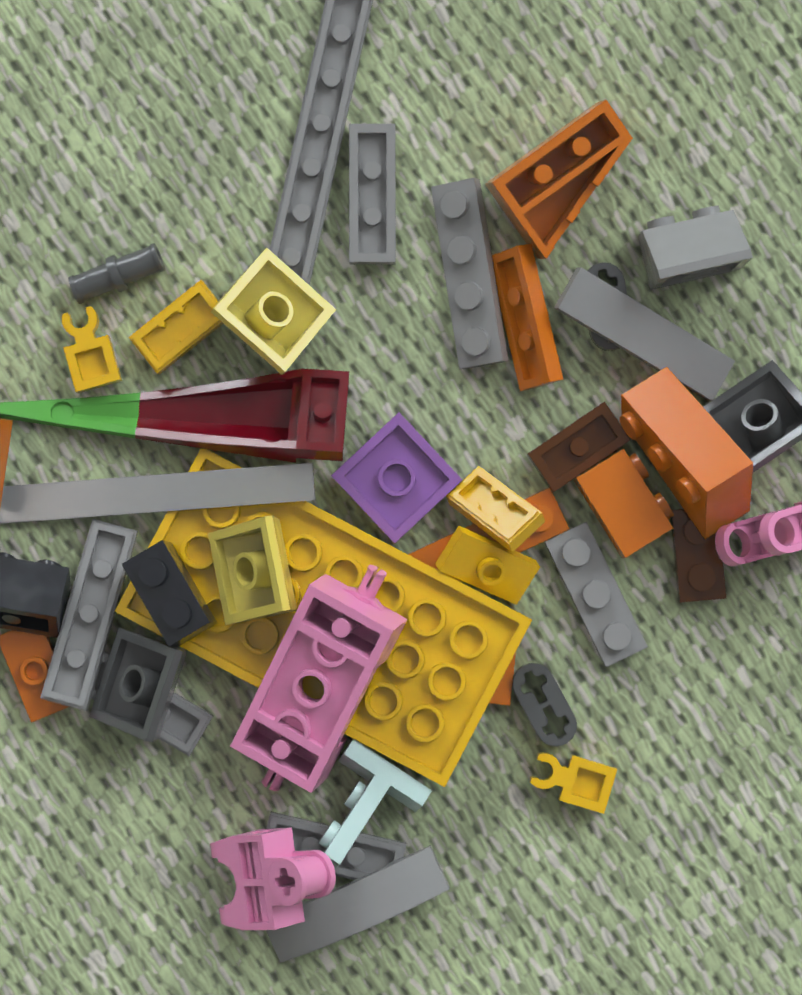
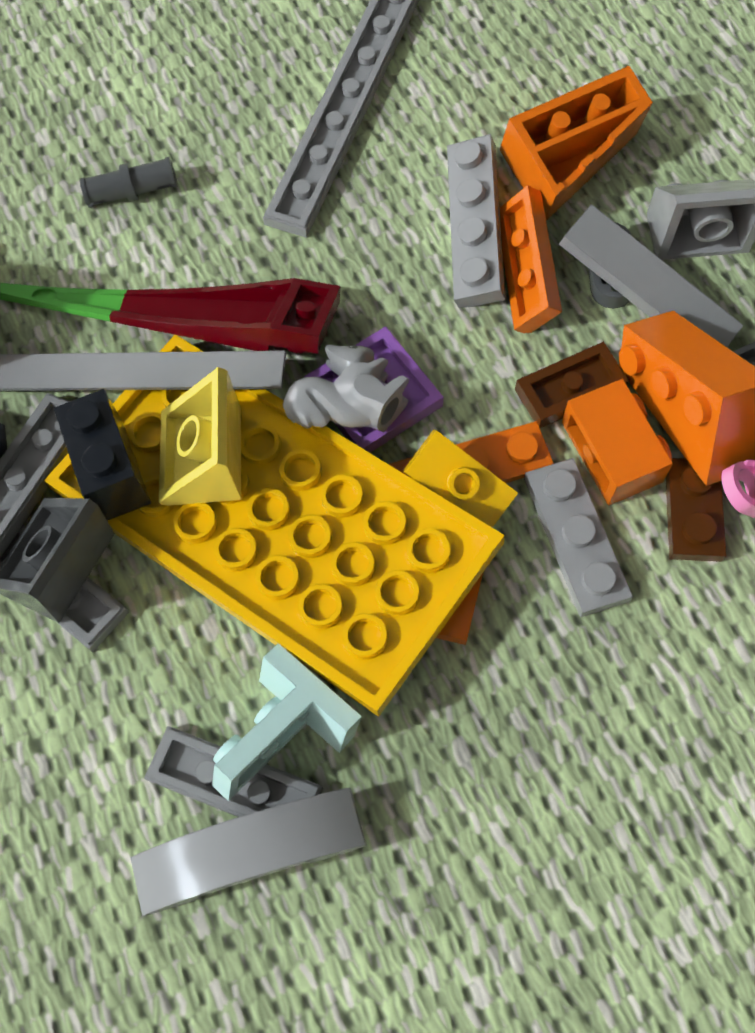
camera: 10 degrees right, 20 degrees down
(91, 358) = (86, 247): yellow plate -> none
(177, 327) = (179, 232): yellow plate -> none
(271, 878) = (147, 794): bright pink piece -> none
(273, 310) = (273, 217): light yellow slope -> none
(341, 640) = (280, 521): bright pink brick -> none
(372, 194) = (388, 146): light grey plate -> none
(382, 507) = (354, 398): none -> light grey animal
(495, 509) = (477, 425): yellow plate -> none
(554, 698) = (518, 640): dark grey beam -> none
(581, 783) = (544, 739): yellow plate -> none

